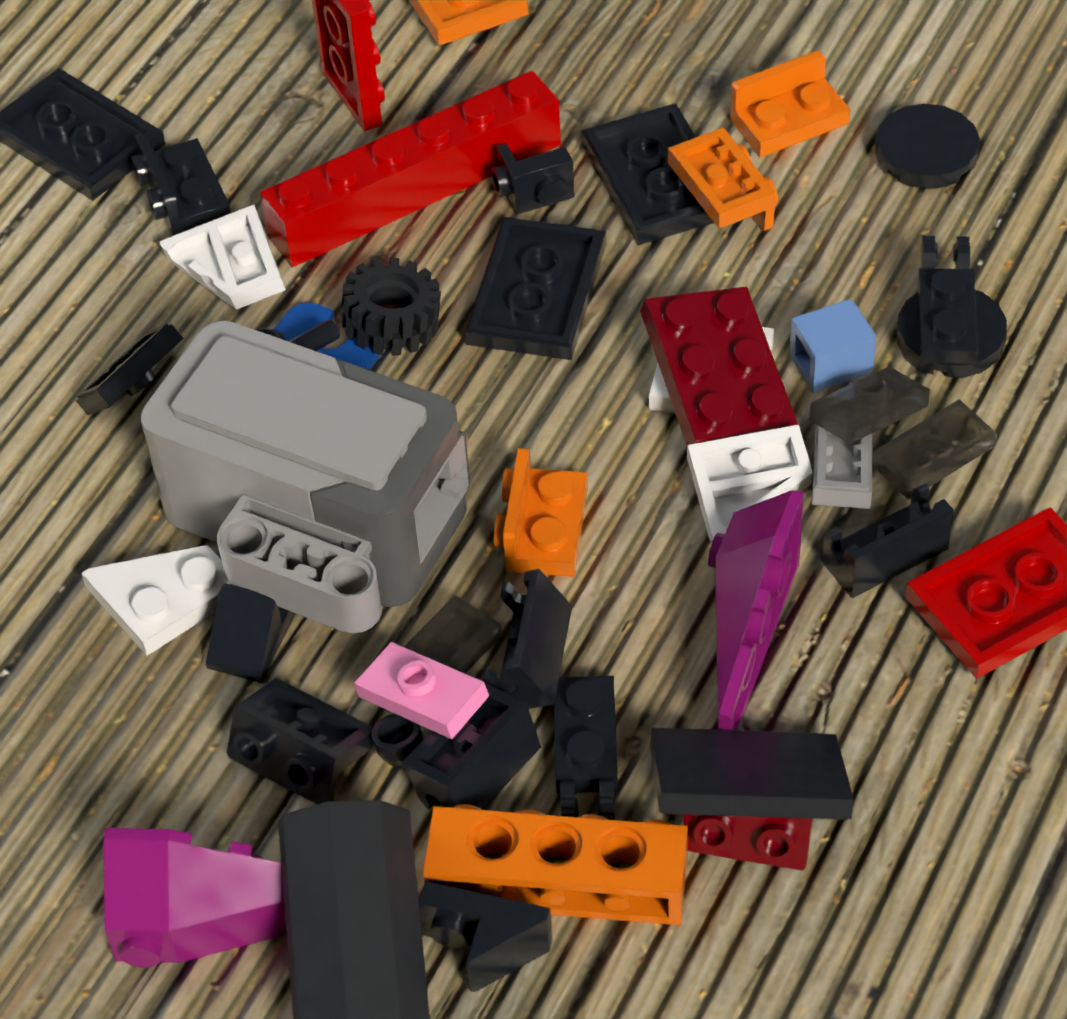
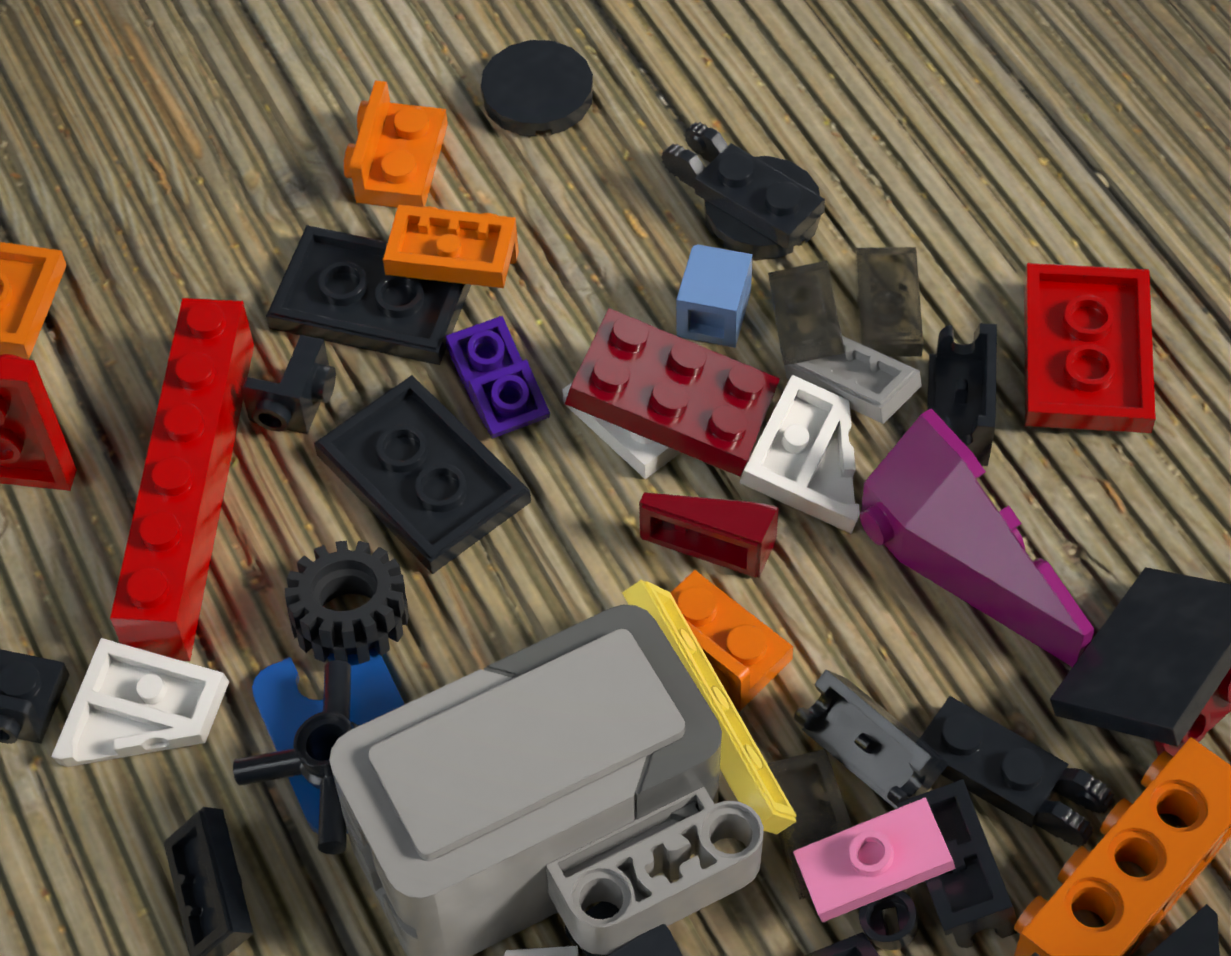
camera: 55 degrees left, 5 degrees up
(455, 526) = (740, 757): none -> light yellow tile
(632, 469) = (711, 529): none -> dark red slope
(653, 271) = (496, 377): none -> dark purple slope

